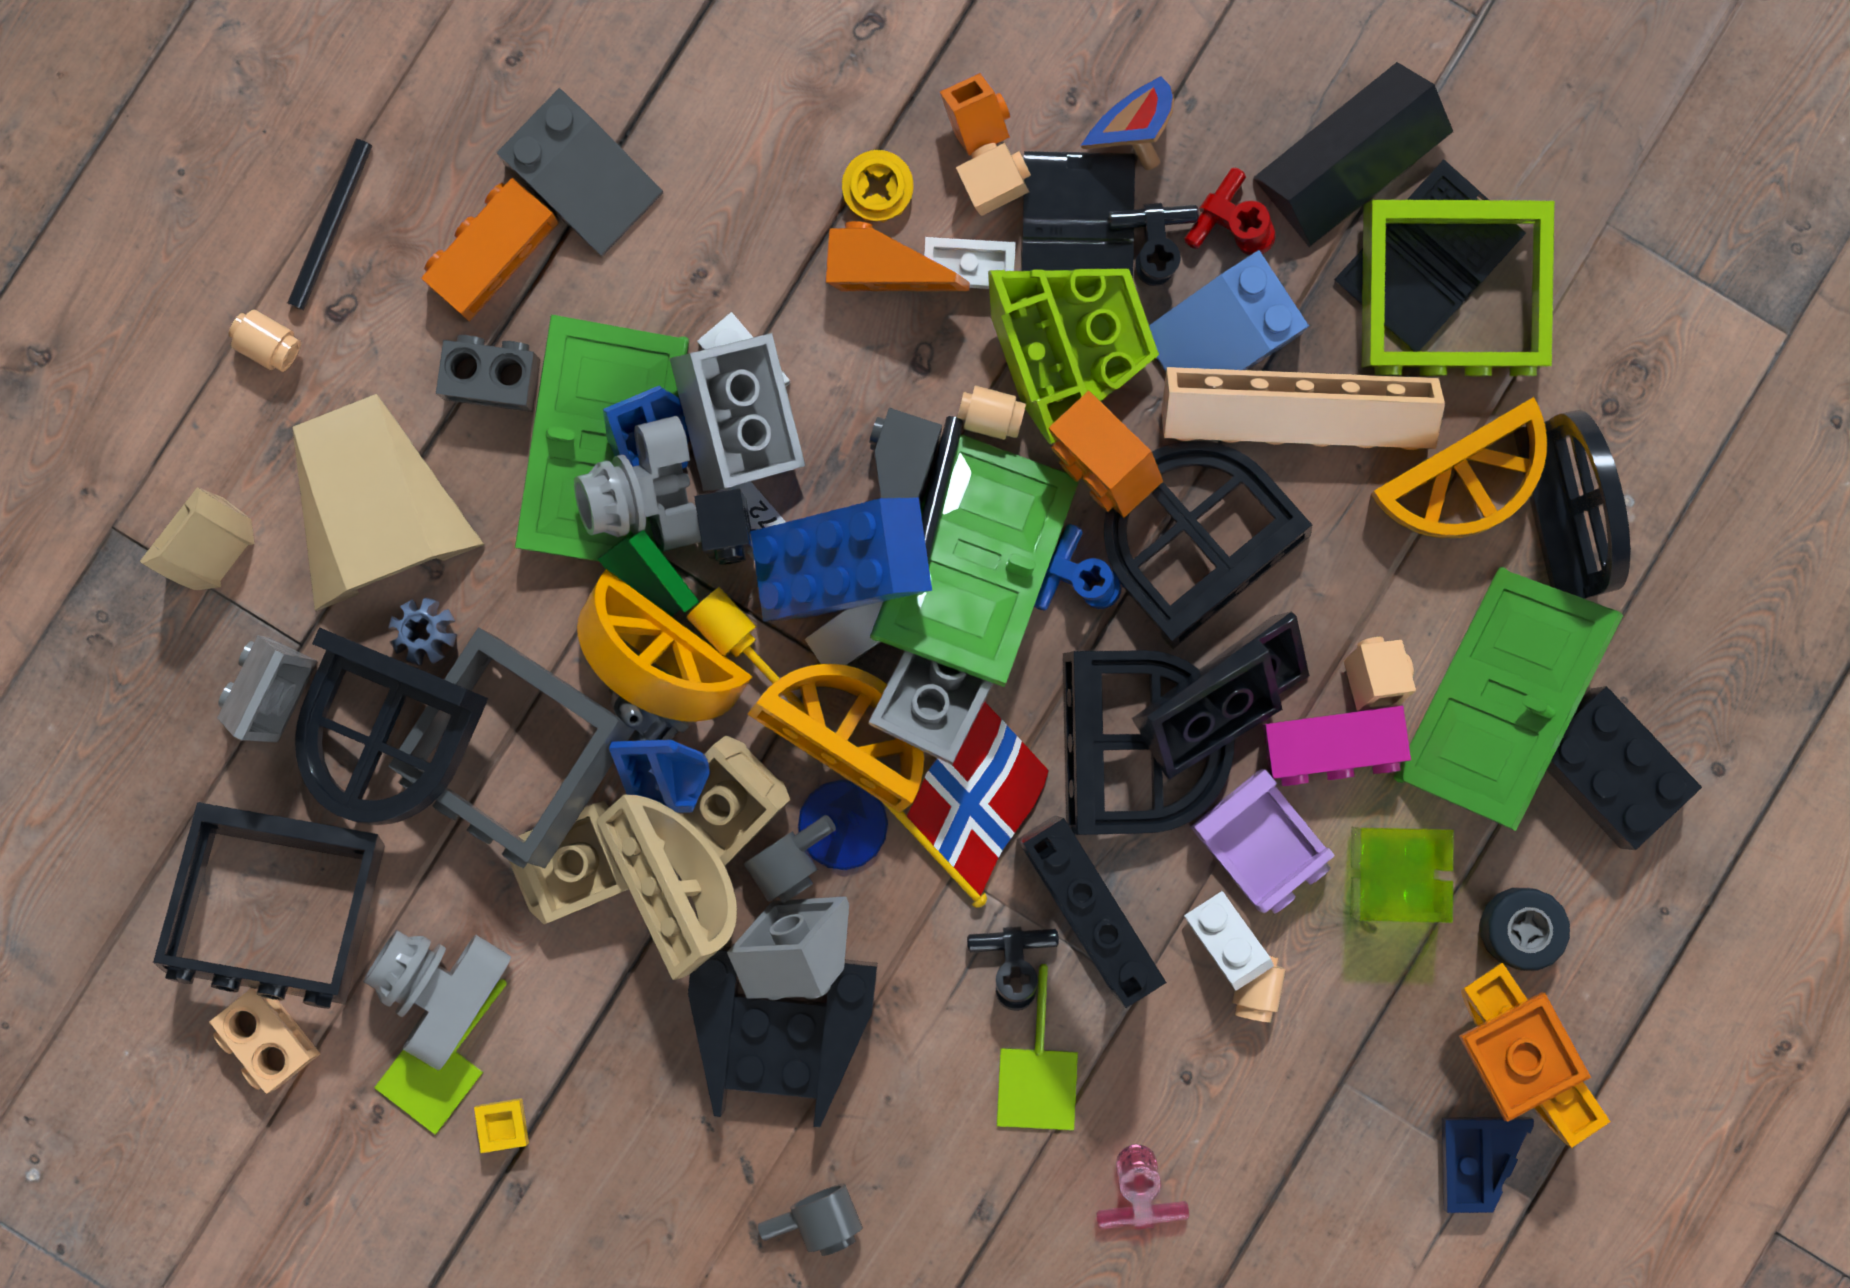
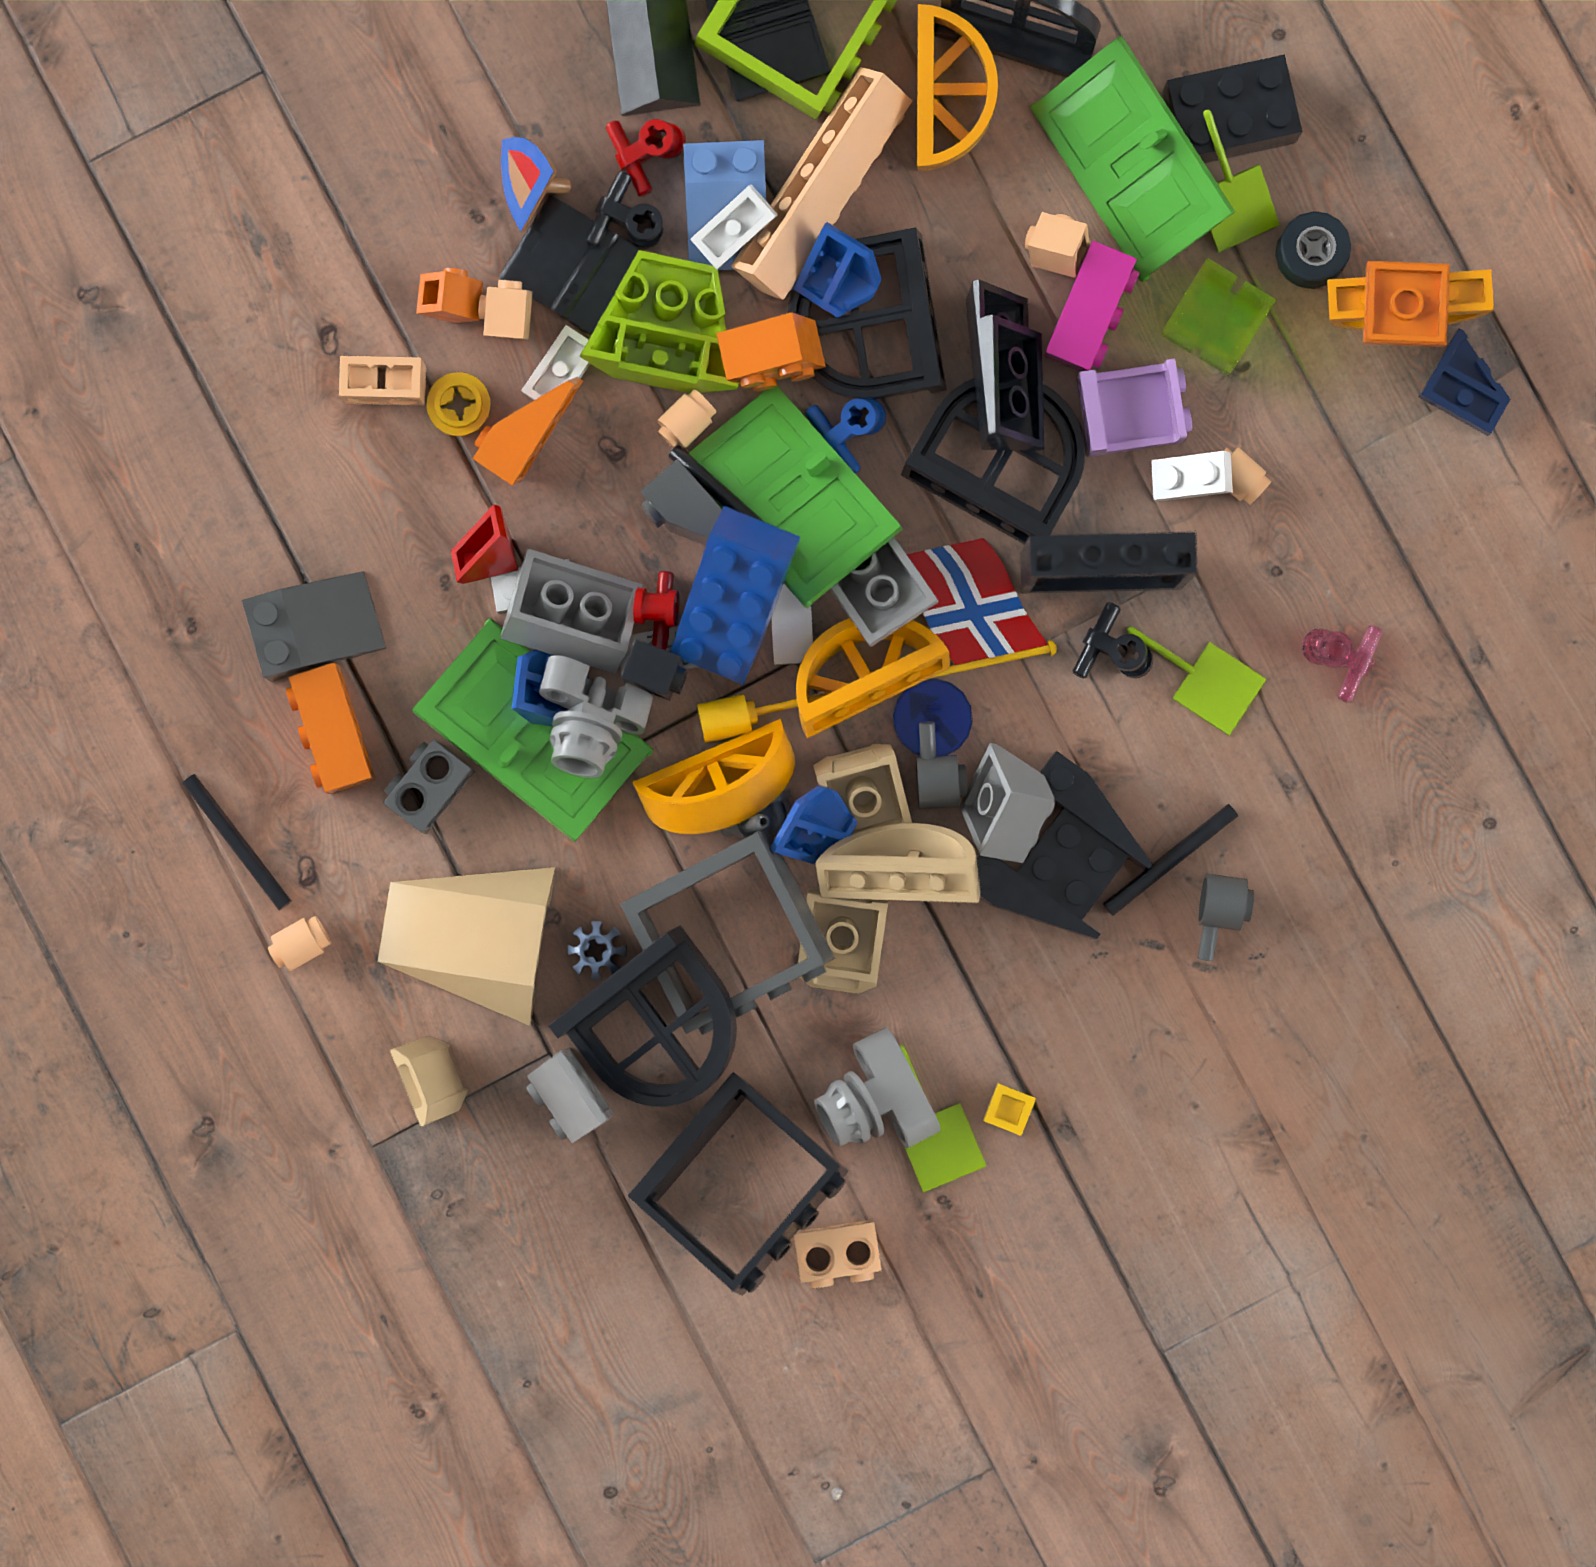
camera: 55 degrees left, 0 degrees up
(648, 571) = (655, 749): green panel -> none
(750, 294) = (485, 549): none -> red slope
(789, 495) = (659, 607): none -> red piece
(840, 1140) = (1170, 859): none -> black bar
(855, 97) = (382, 380): none -> light nougat brick
(1206, 347) = (734, 226): none -> white plate
(1222, 475) = (838, 272): none -> blue slope
(1539, 832) = (1246, 194): none -> lime piece

